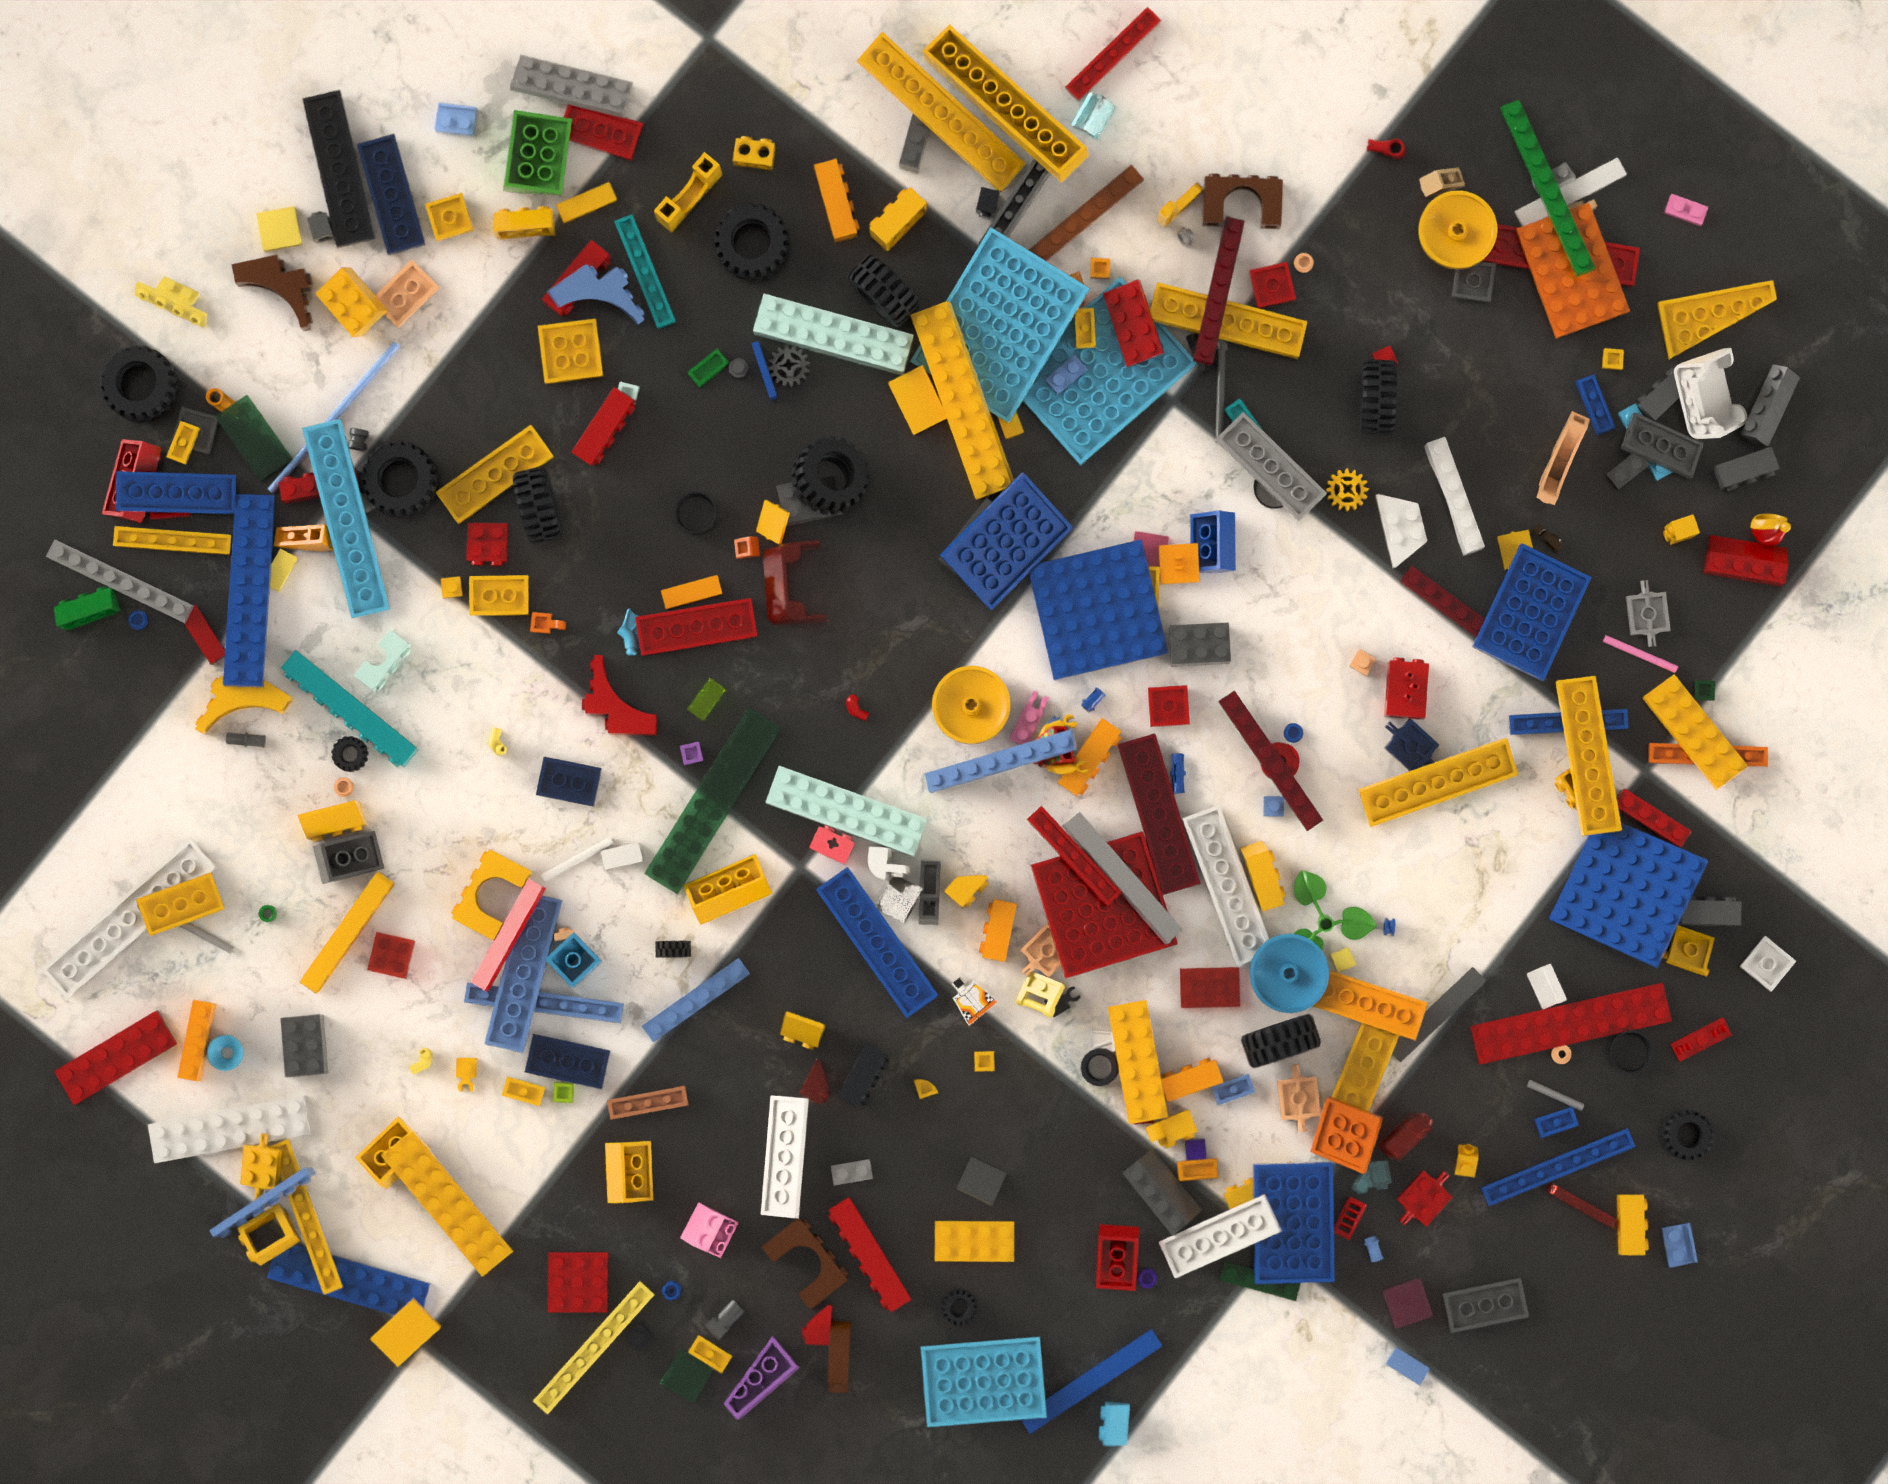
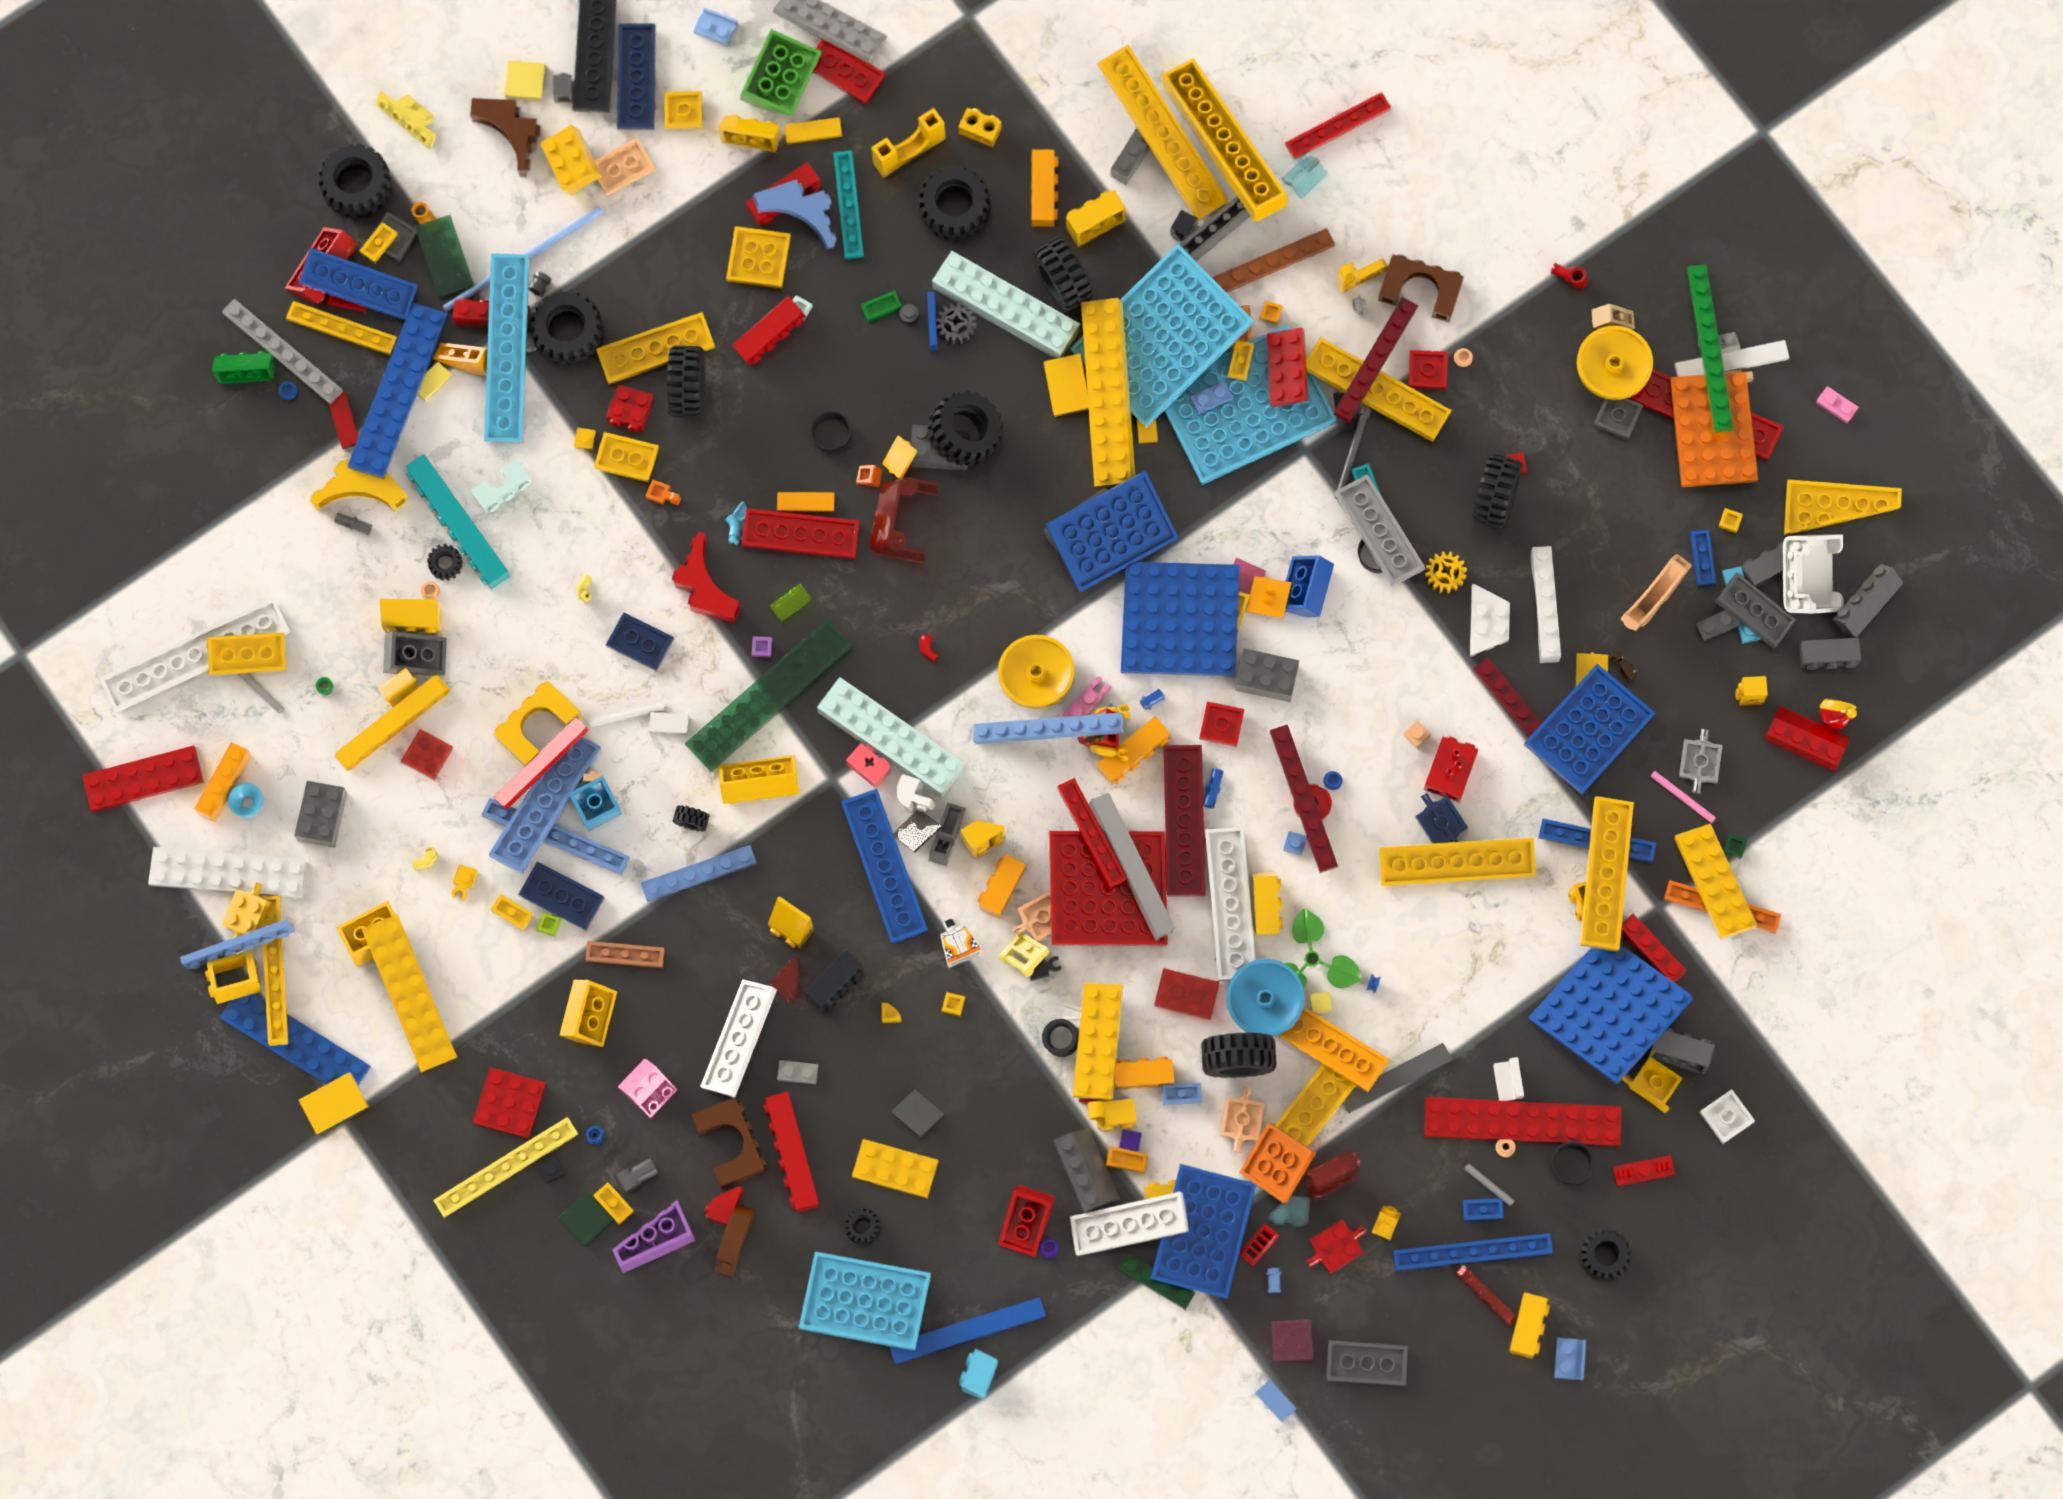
camera: 15 degrees right, 10 degrees down
(344, 896) = (399, 687): none -> yellow piece

